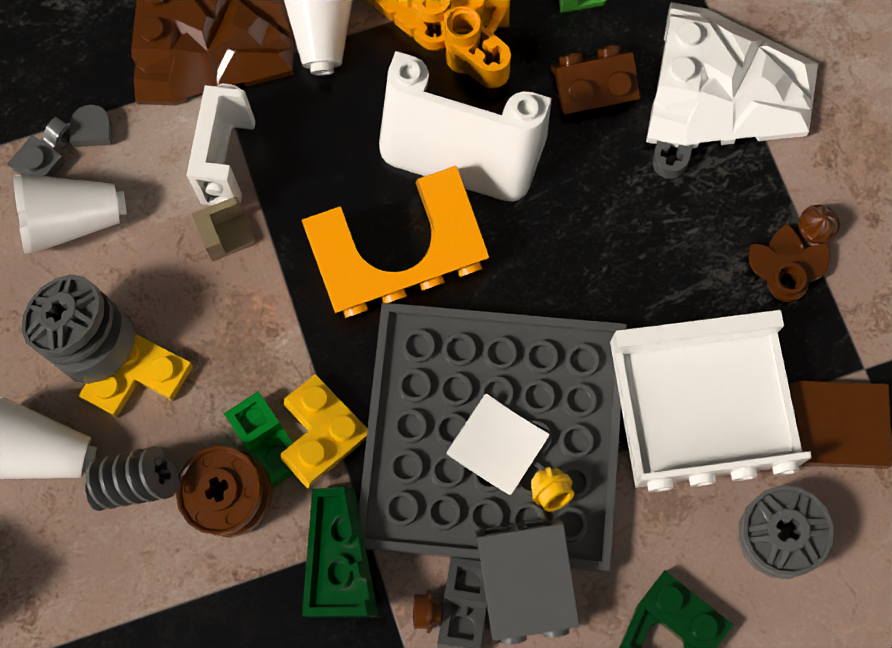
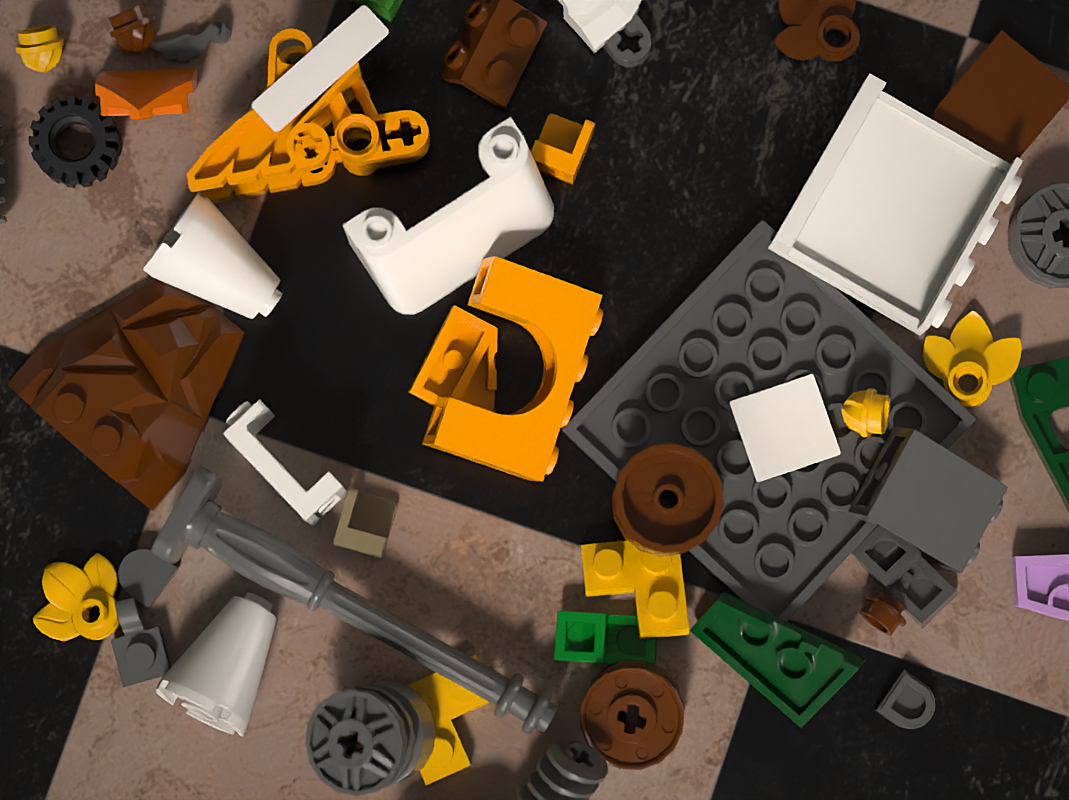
camera: 60 degrees left, 10 degrees up
(45, 99) = (73, 596): none -> yellow plate
(143, 120) = (287, 571): none -> dark grey piece
(375, 210) = (460, 362): none -> light orange wing
(399, 380) = (646, 521): none -> reddish brown wheel
(566, 168) = (562, 147): none -> light orange panel
(653, 534) = (972, 354): none -> yellow plate

